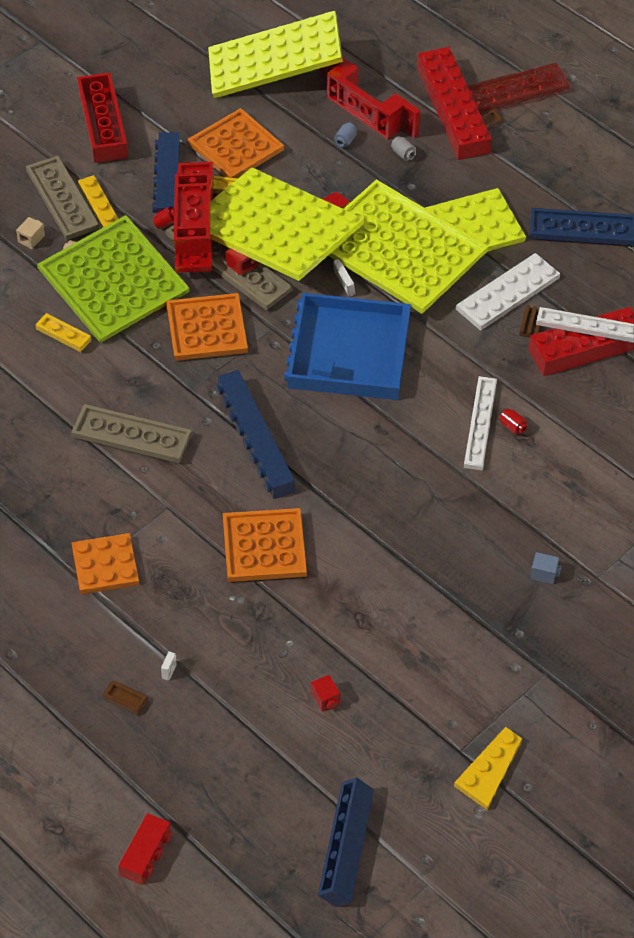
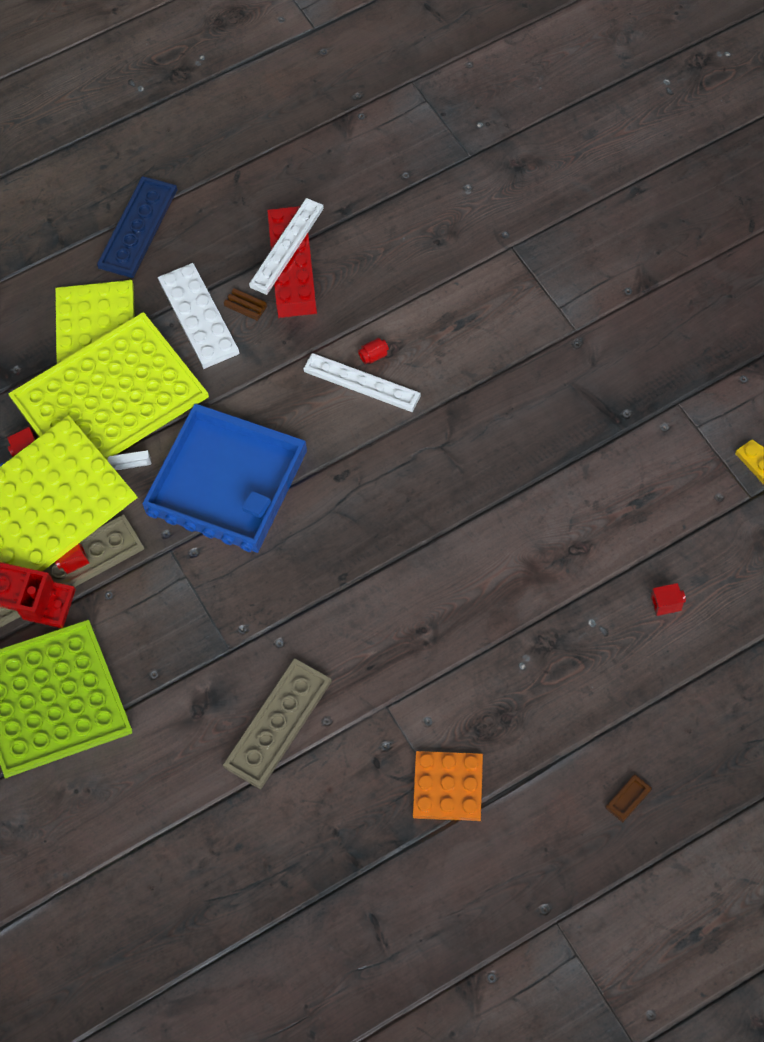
camera: 70 degrees left, 10 degrees up
(63, 332) = (105, 770): yellow plate -> none
(168, 666) = (602, 743): white tile -> none
(206, 326) = (149, 614): orange plate -> none
(255, 434) = (316, 595): dark blue brick -> none
(264, 545) = (466, 618): orange plate -> none
(545, 568) = (561, 369): sand blue brick -> none

